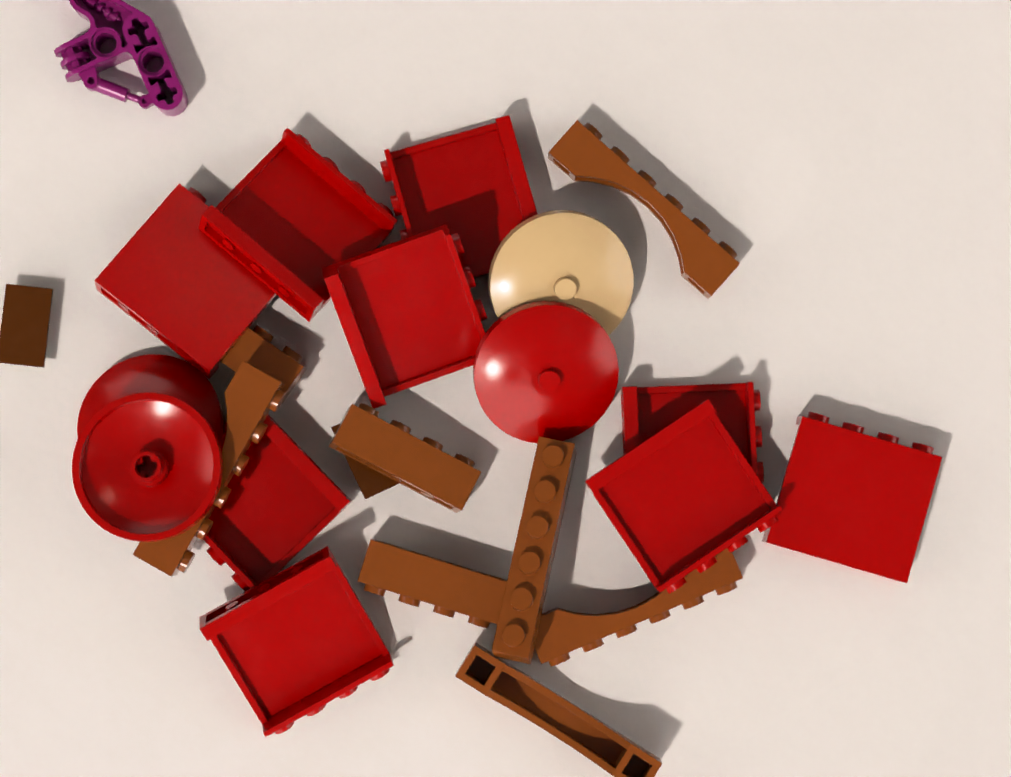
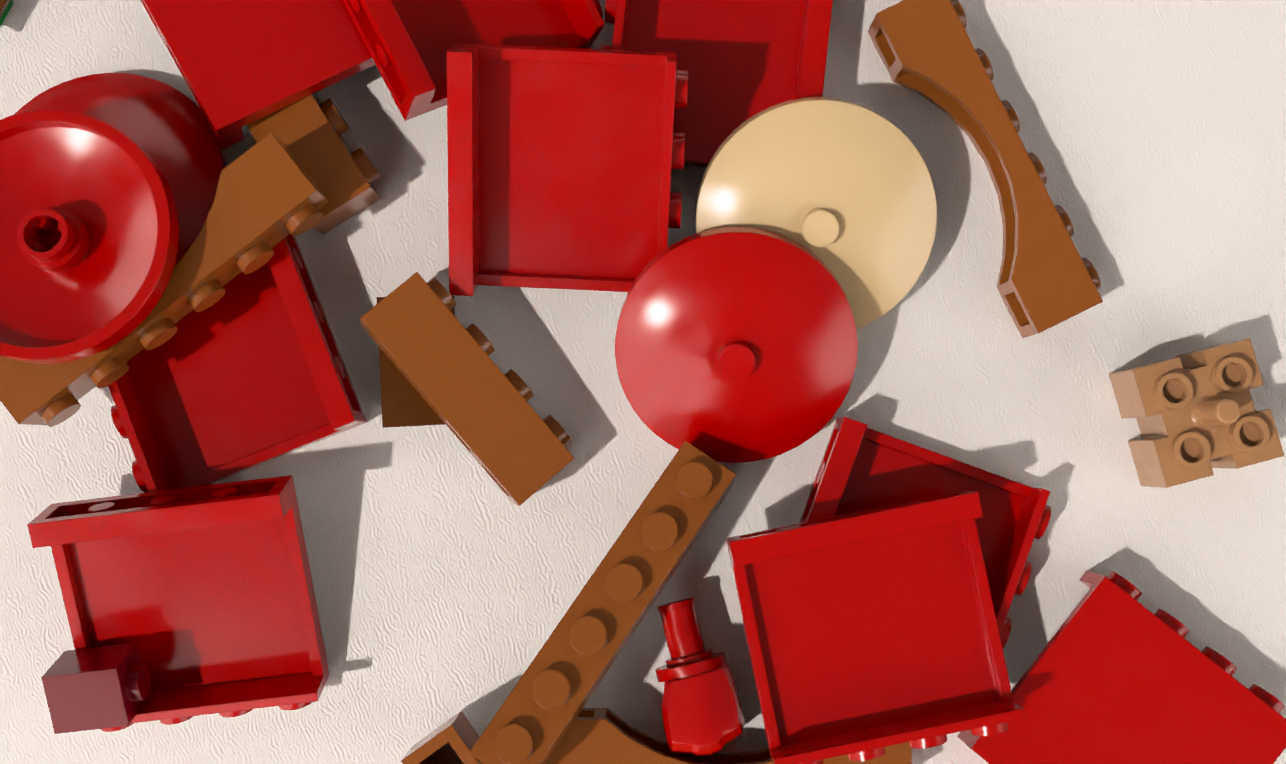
camera: 30 degrees right, 0 degrees up
(268, 707) = (96, 688): none -> dark red brick
(432, 581) = (433, 595): dark orange brick -> none
(603, 571) = (699, 689): none -> red piece
(819, 304) = (1196, 414): none -> medium nougat brick

